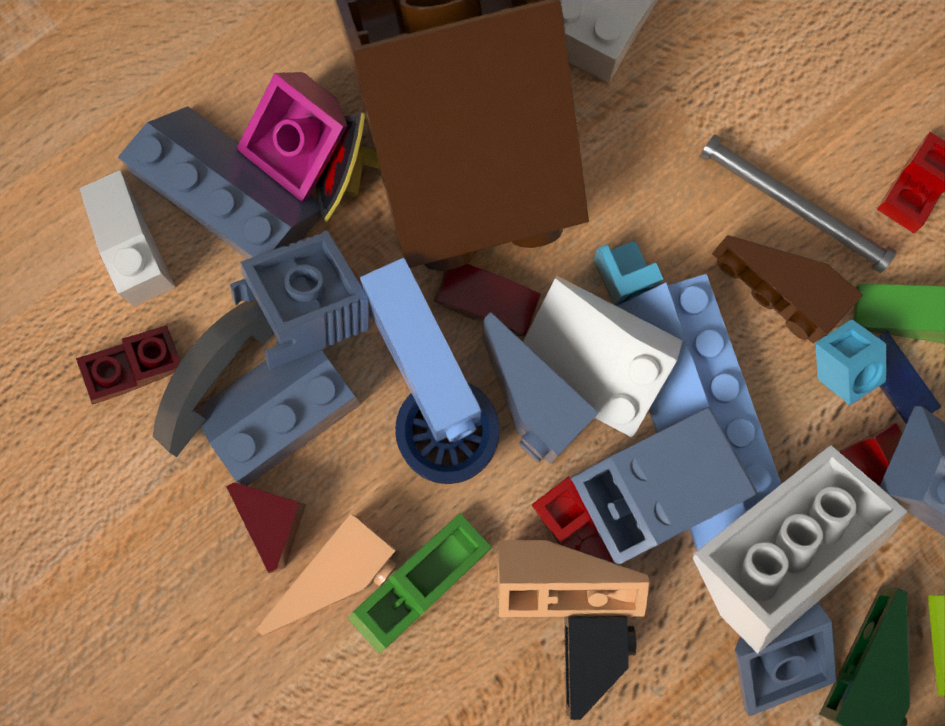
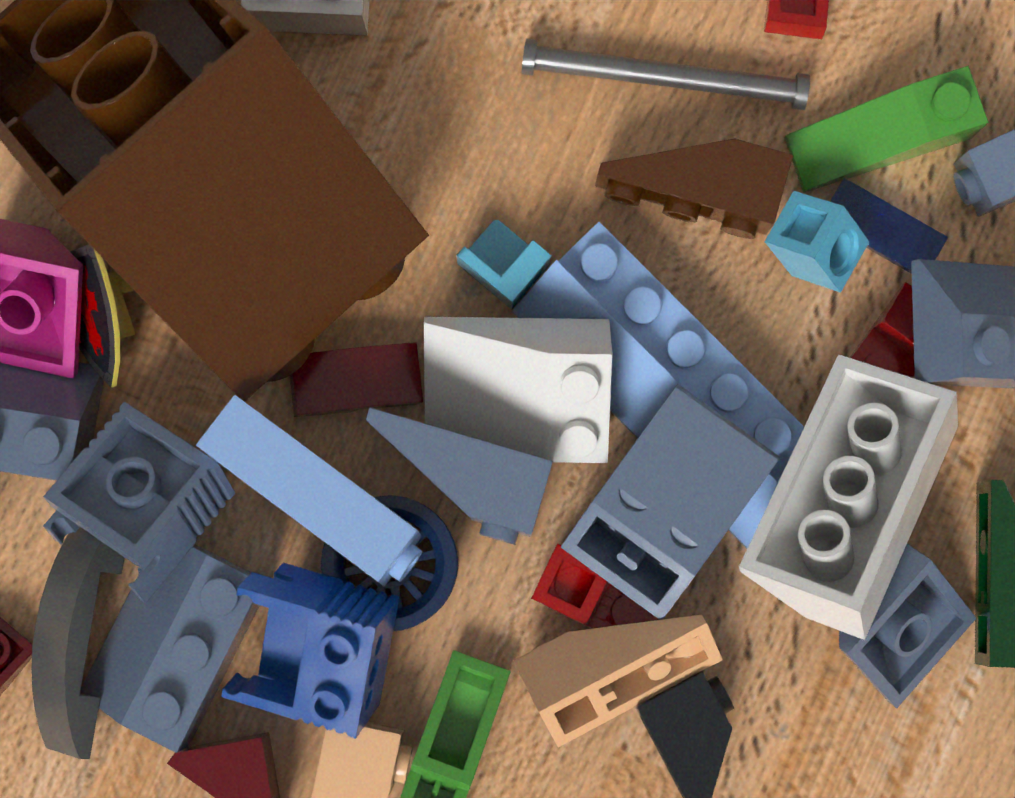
camera: 25 degrees left, 5 degrees up
(370, 463) = (319, 650): none -> blue piece

